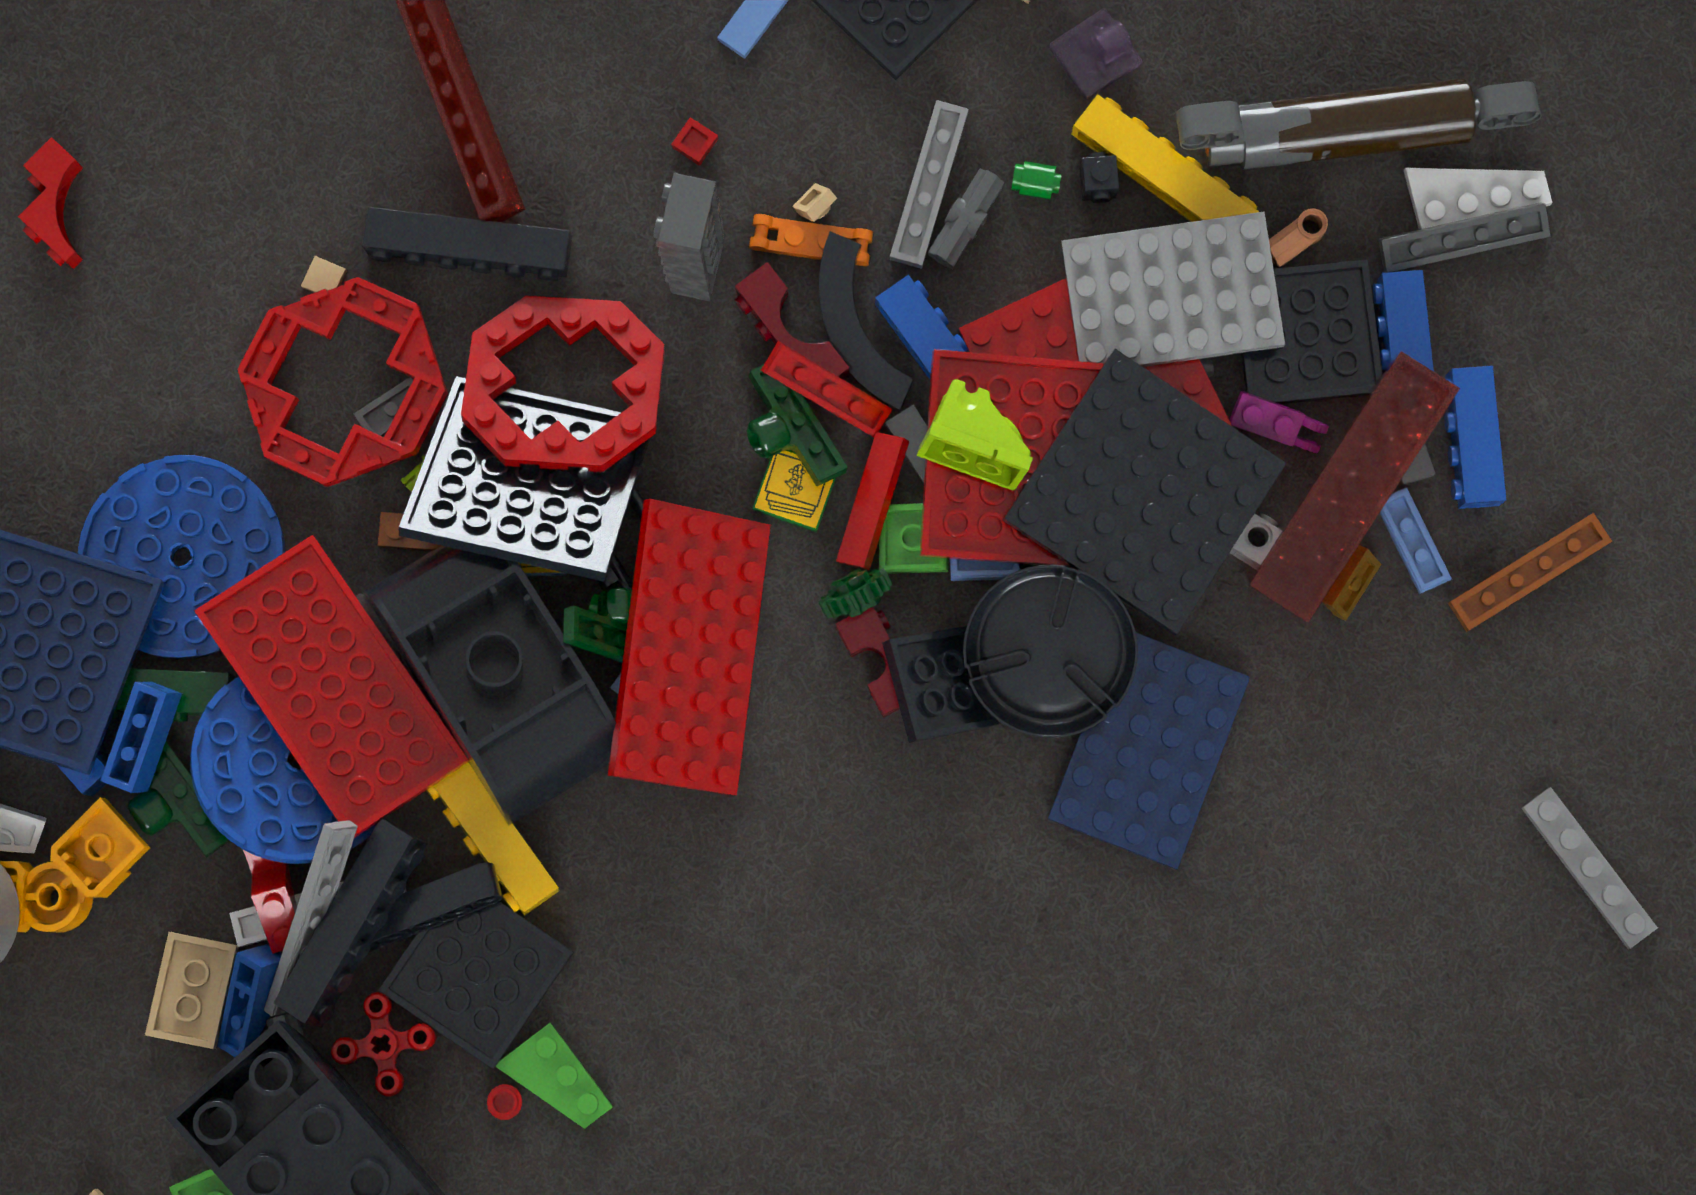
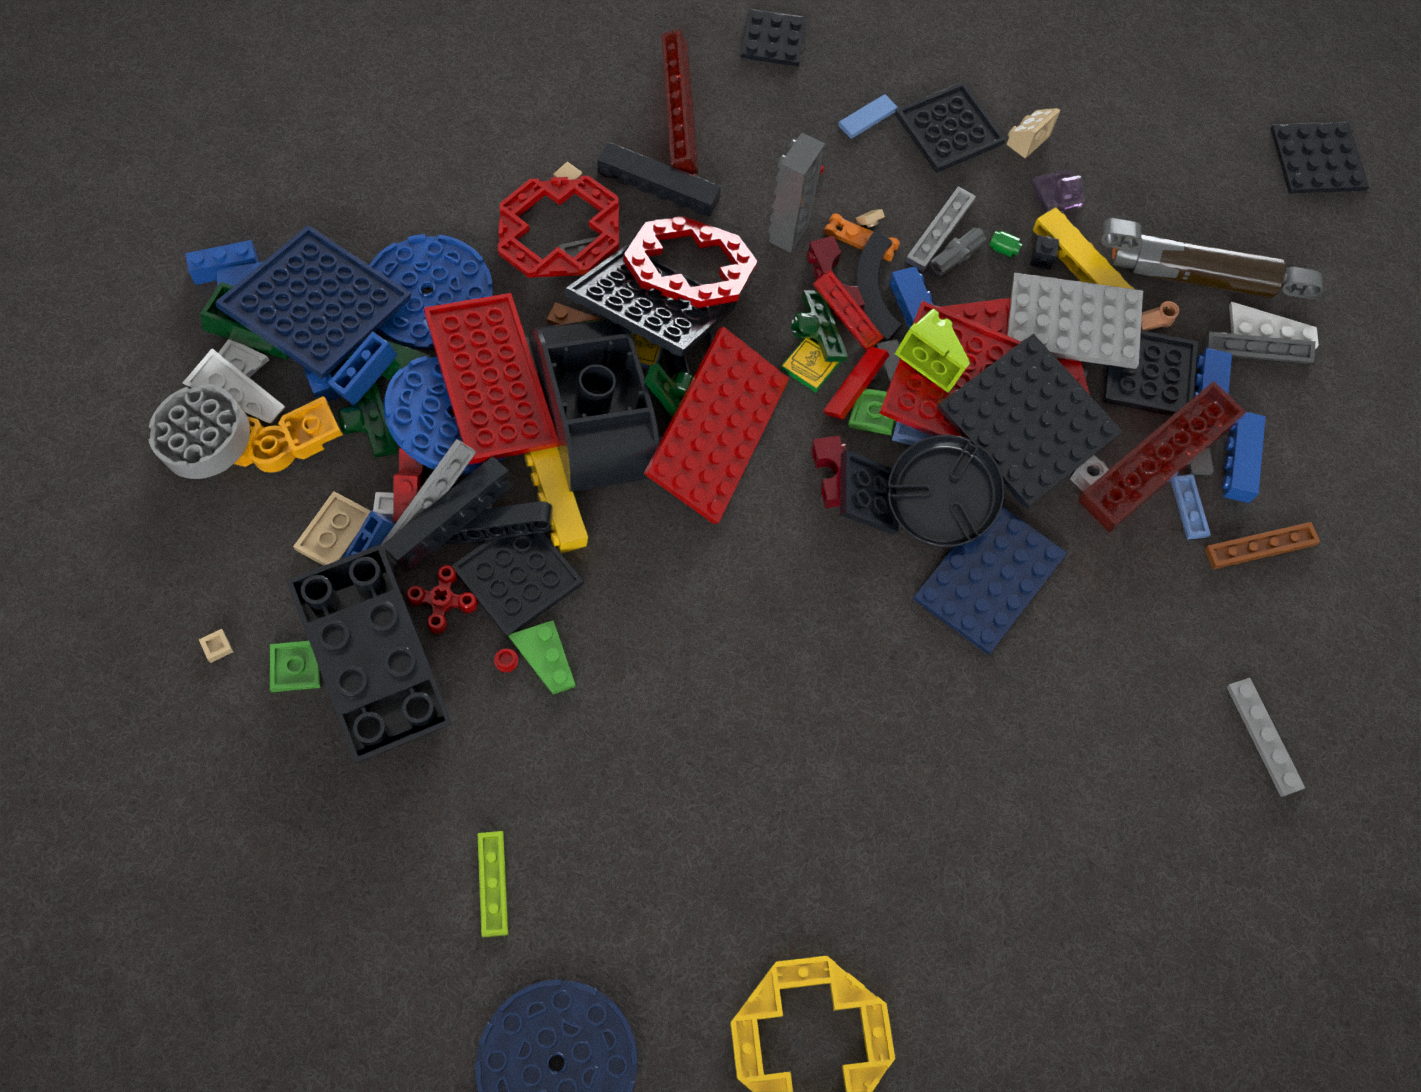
camera: 10 degrees right, 15 degrees down
(52, 174) = (433, 79): red arch -> none
(855, 593) = (831, 425): dark green gear -> none
(1274, 421) = (1121, 412): magenta hinge -> none
(1351, 583) = (1146, 516): pearl gold plate -> none

